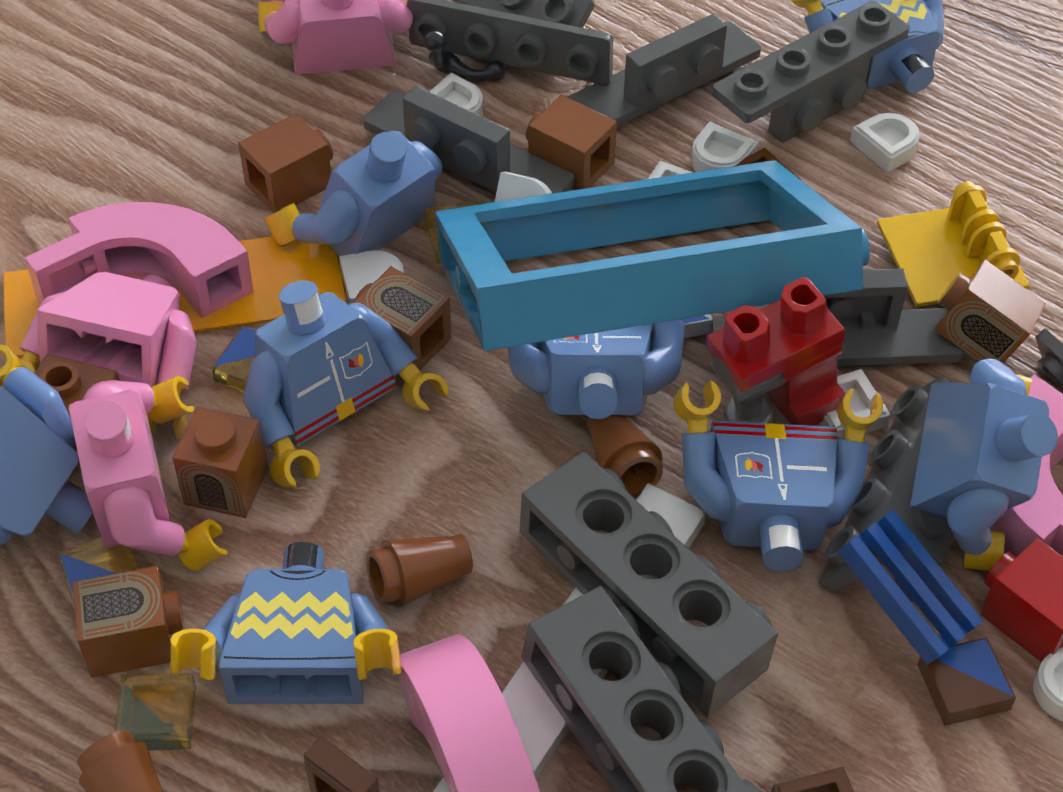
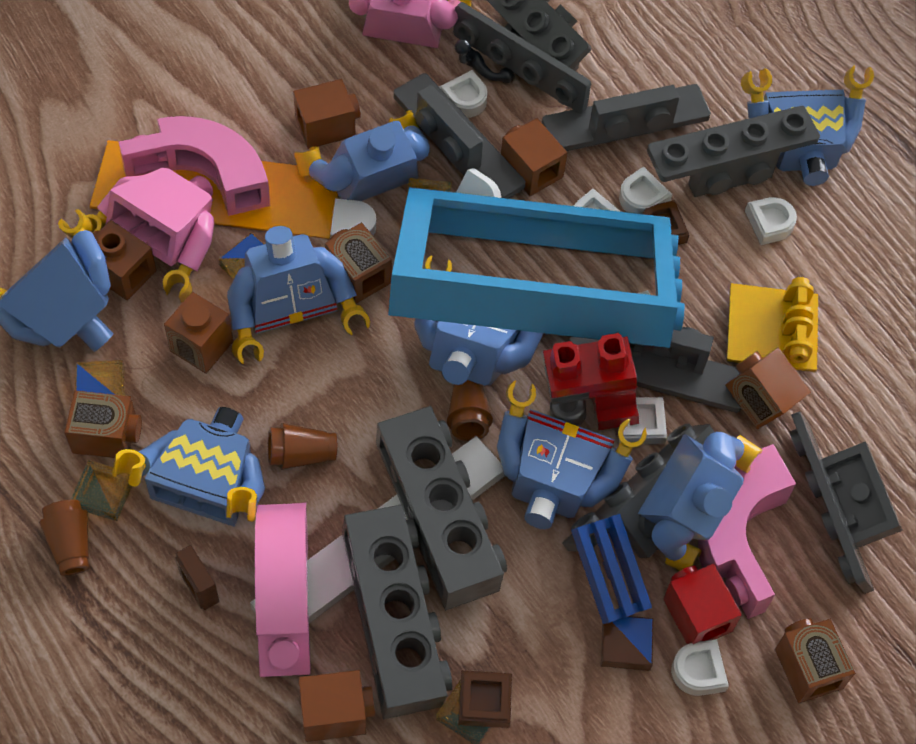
camera: 15 degrees right, 10 degrees up
(124, 472) = (130, 322): bright pink torso -> none

